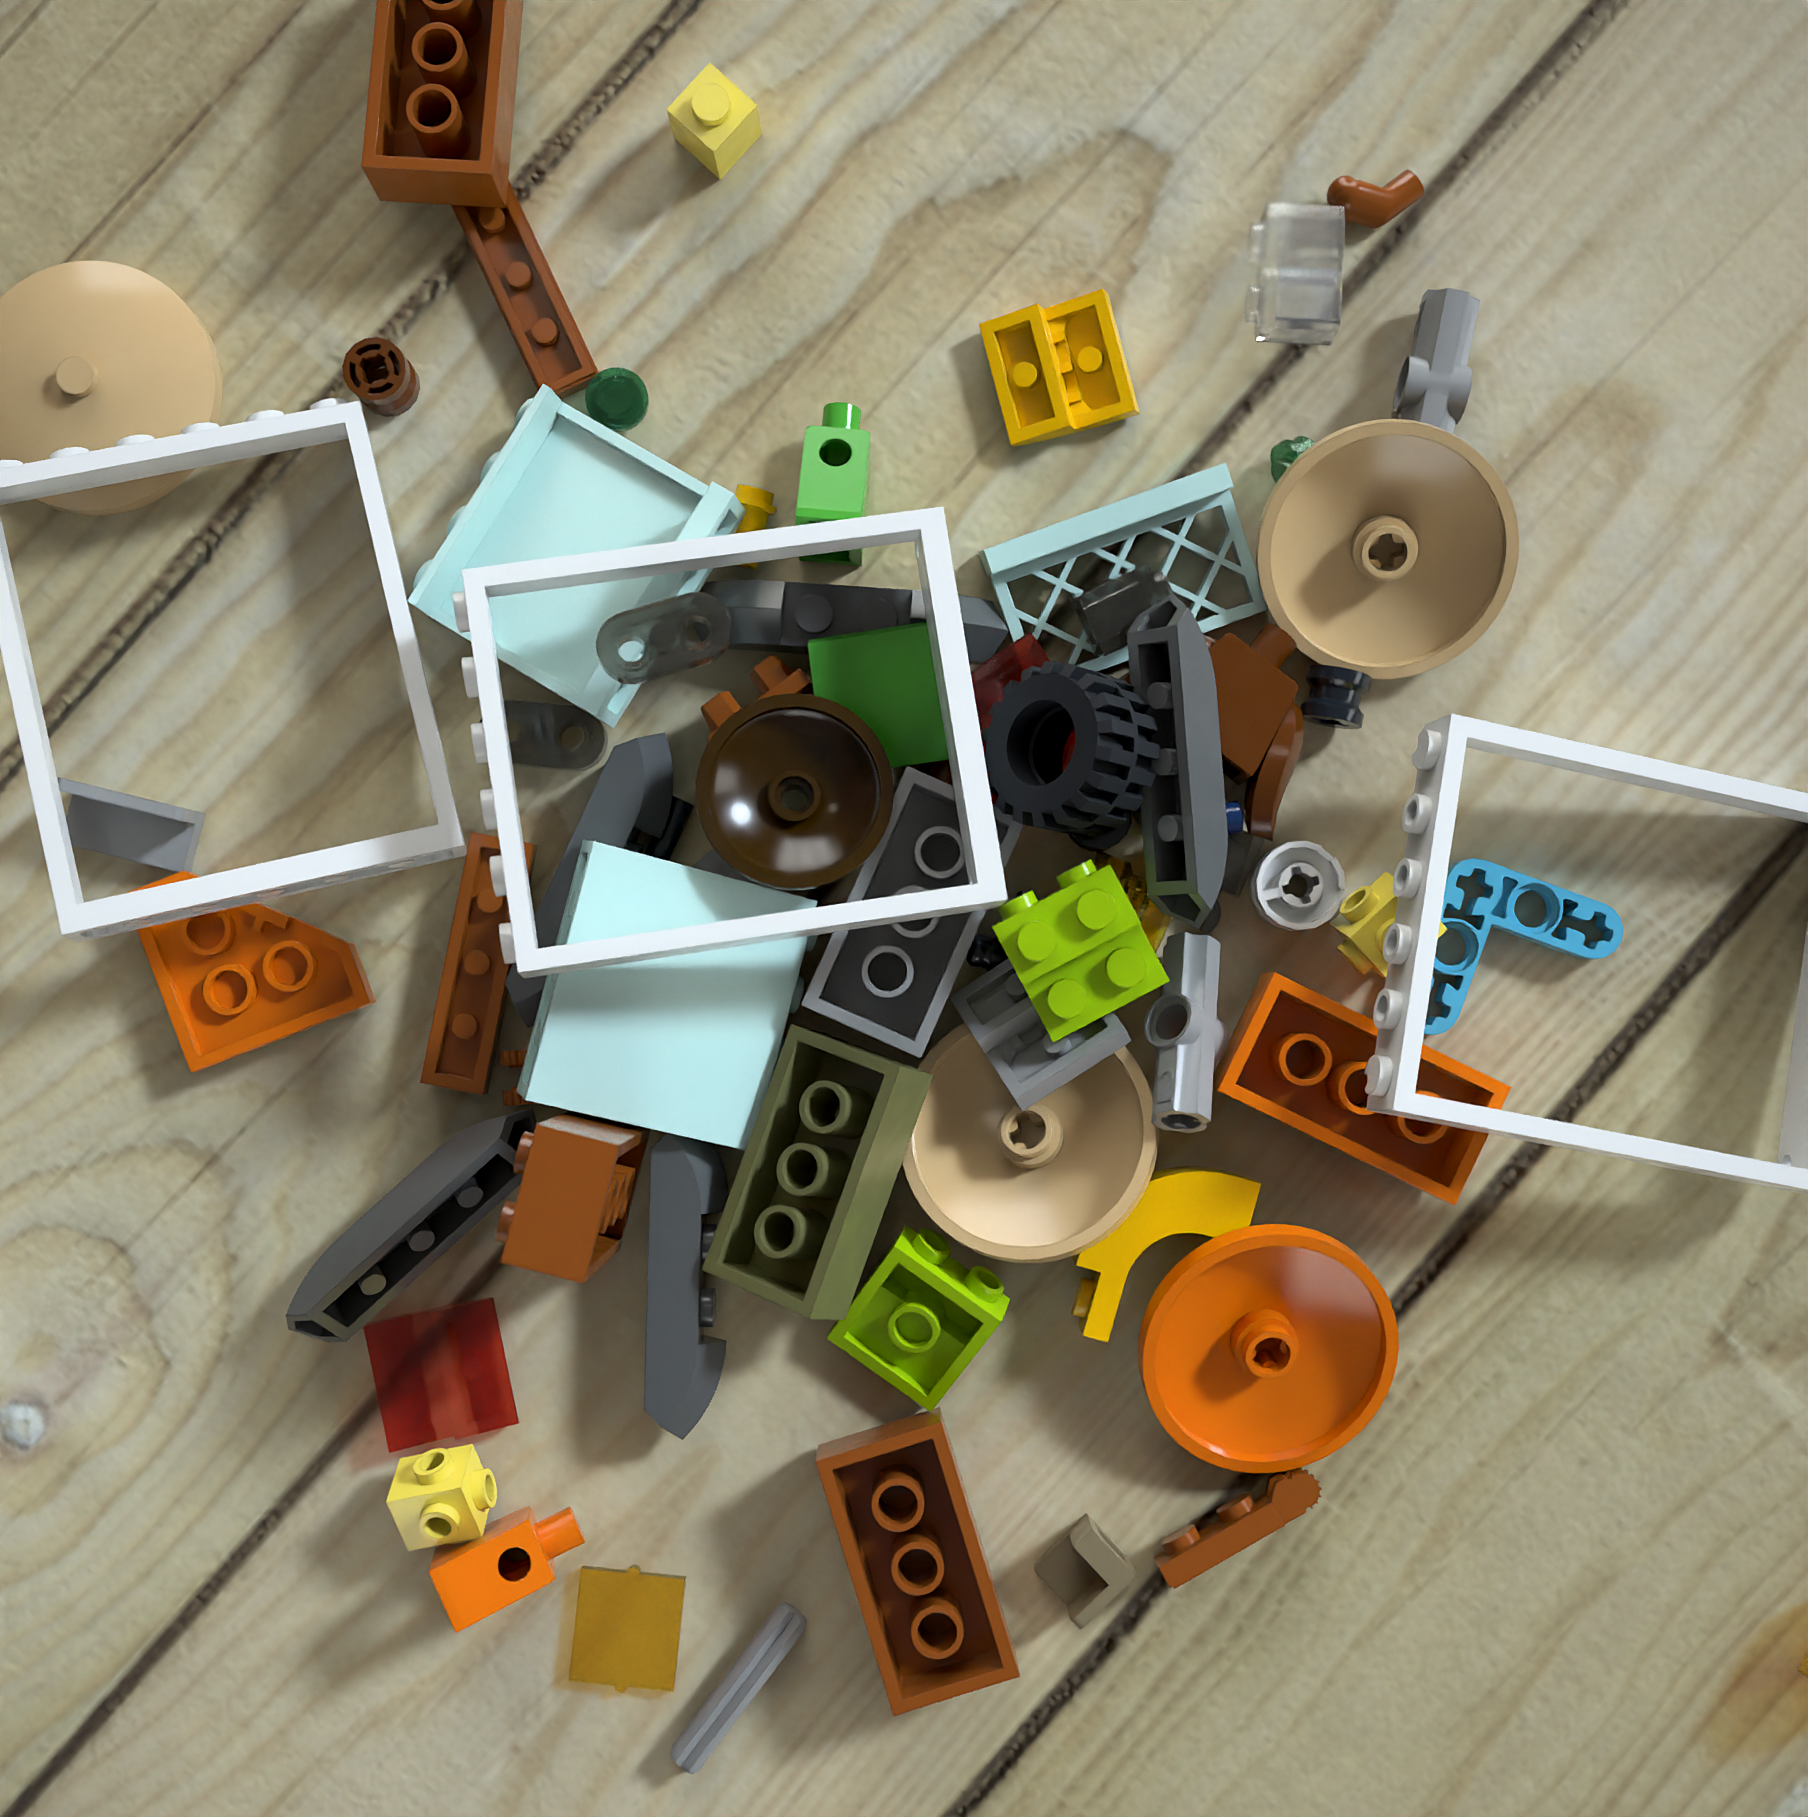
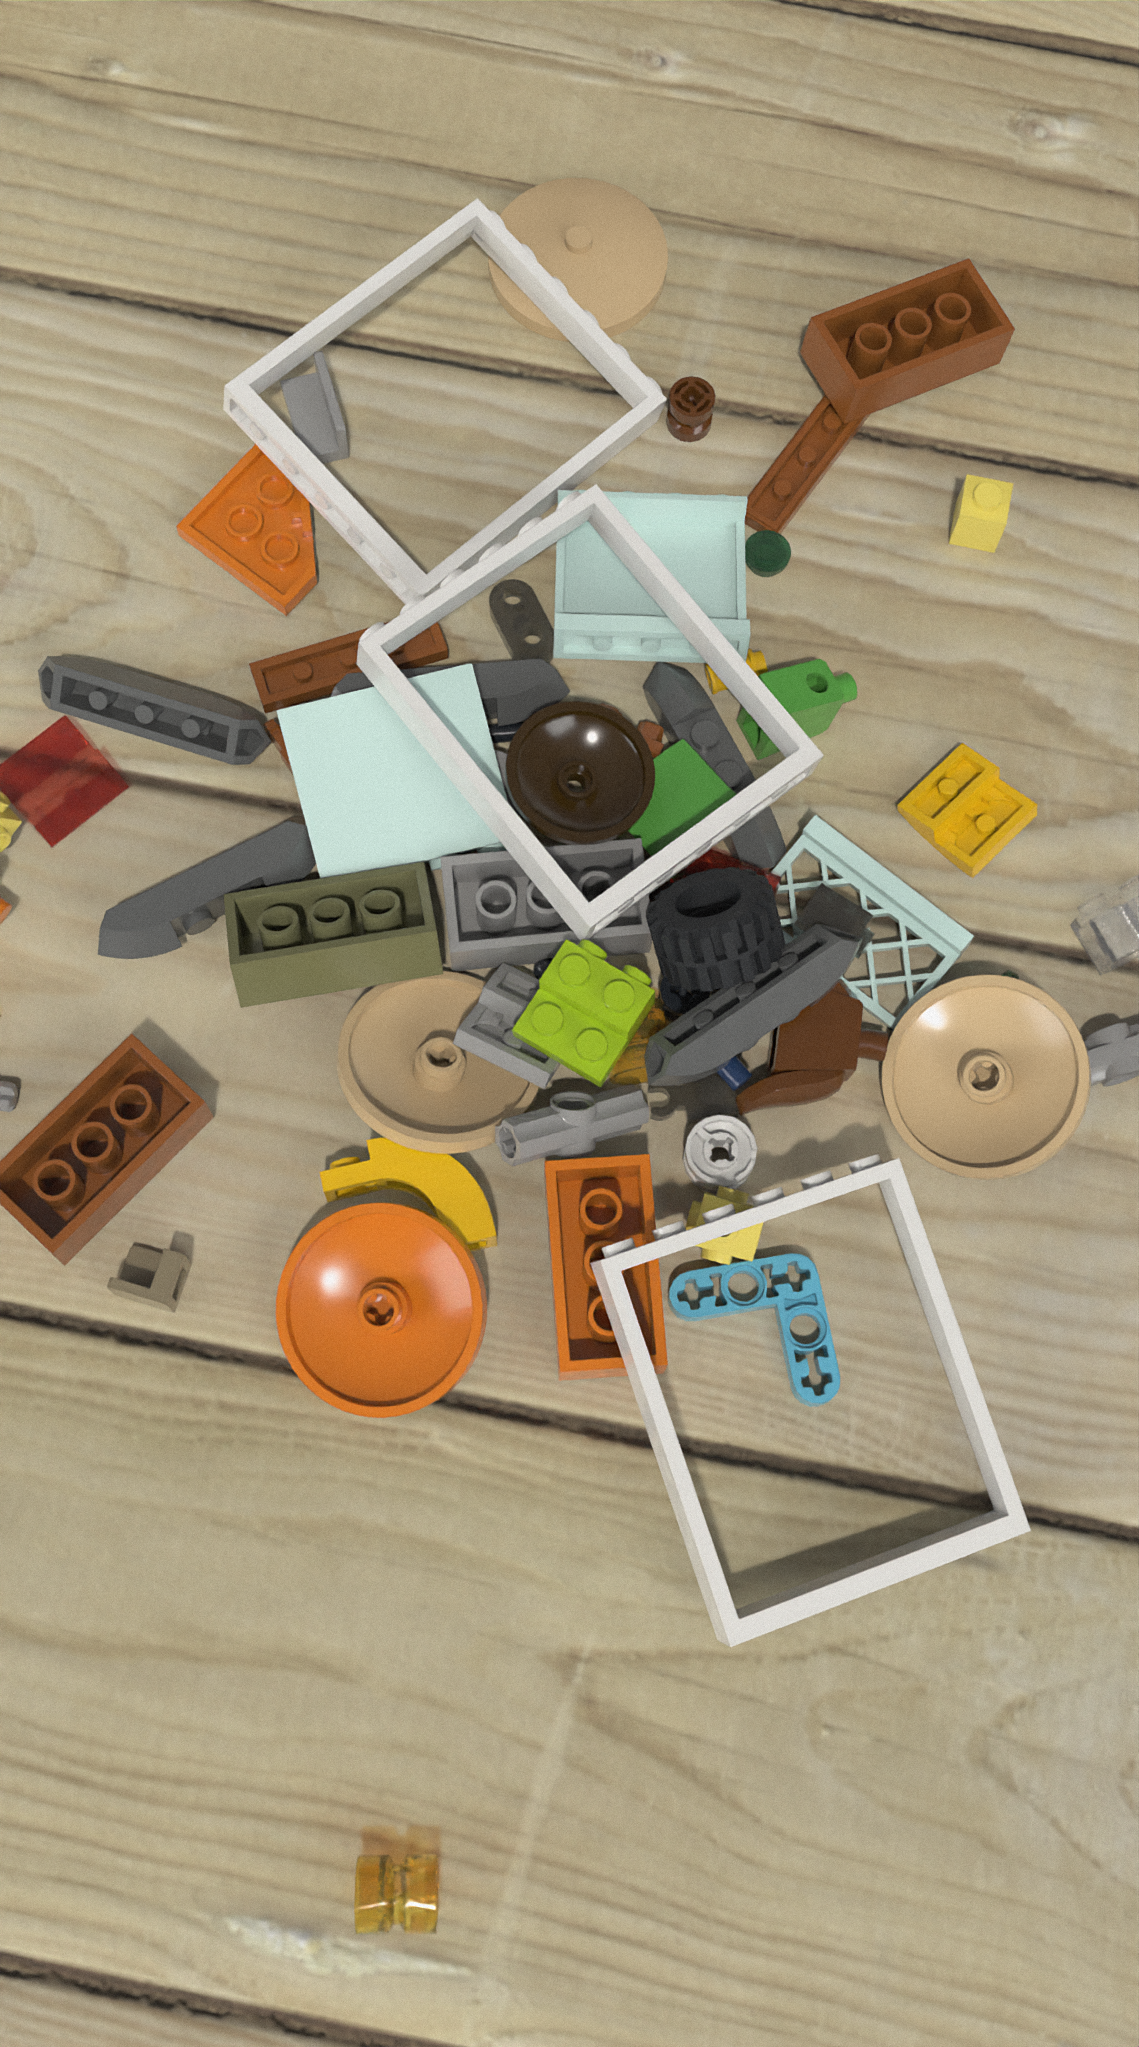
camera: 55 degrees right, 15 degrees down
(572, 1194) = (231, 769): dark orange brick -> none
(661, 632) = (631, 621): clear smoke plate -> none
(921, 1316) = (271, 1063): lime plate -> none
(1240, 1525) = (242, 1367): dark orange hinge -> none
(1335, 696) = (865, 1105): black wheel -> none

